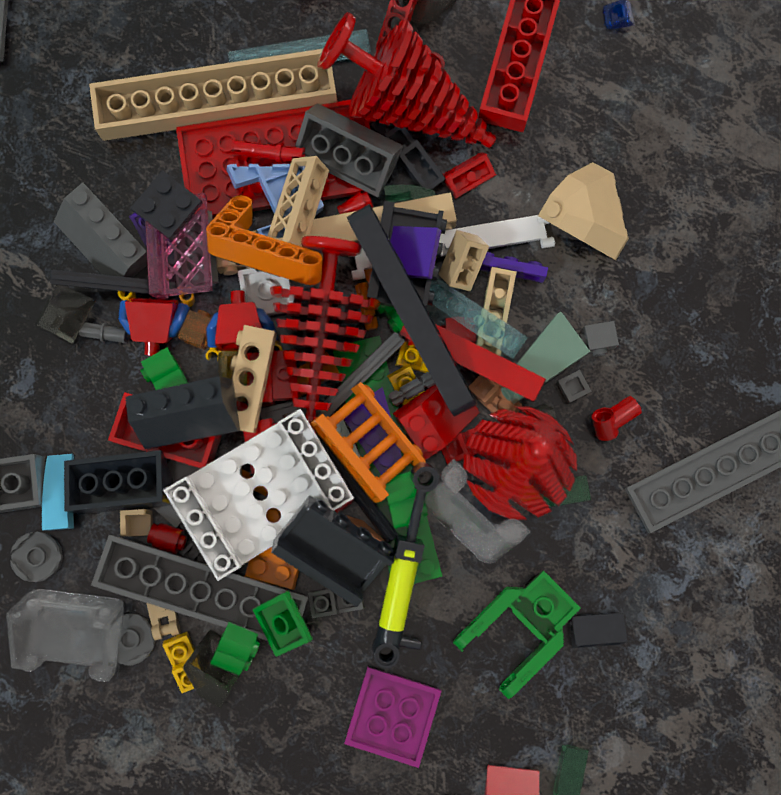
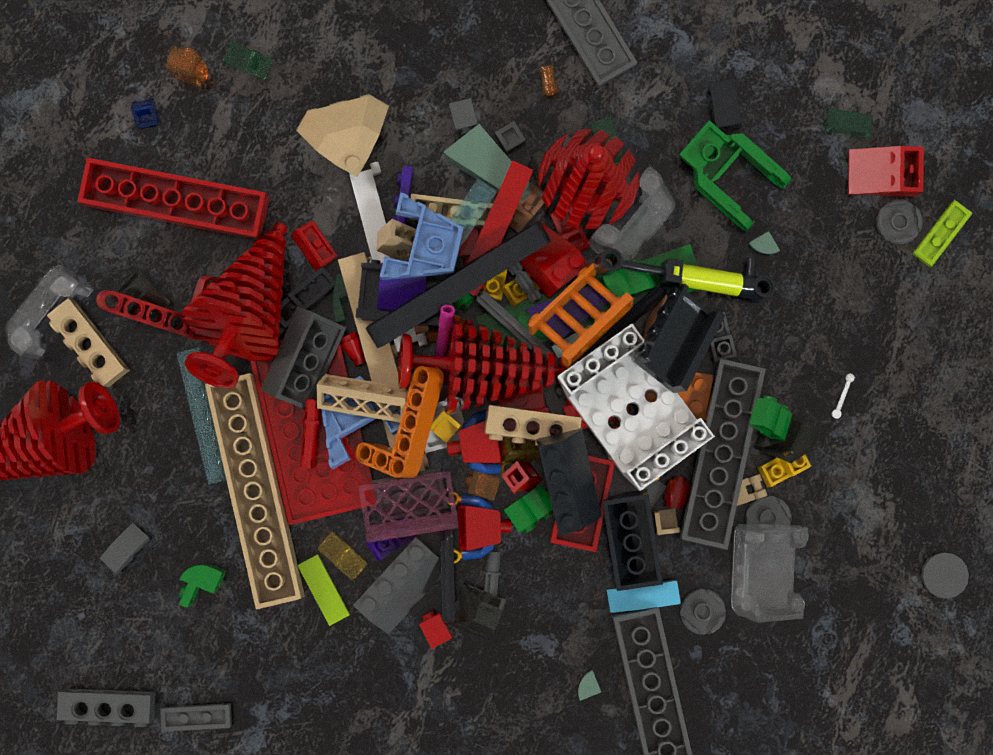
camera: 90 degrees left, 5 degrees up
(43, 264) = (434, 629): none -> red brick
(107, 159) = (323, 590): none -> lime tile
(132, 40) = (200, 576): none -> green brick
(134, 183) = (342, 555): none -> clear yellow slope
(166, 205) = (374, 519): black plate -> none
(199, 365) = (521, 477): none -> red brick
(239, 728) = (837, 413): none -> white hinge
(260, 291) = (445, 426): none -> yellow panel
(282, 623) = (746, 376): green slope -> none
(374, 291) = (445, 324): none -> dark pink piece
(393, 717) = (814, 278): magenta plate -> none
(436, 662) = (764, 244): none -> sand green tile
(456, 286) = (433, 247): none -> medium blue wing
(608, 420) = (539, 103): red piece -> none
(634, 433) = (548, 81): none -> clear orange pin
(667, 52) = (187, 66): none -> clear orange brick
(670, 119) = (247, 60): none -> clear green slope

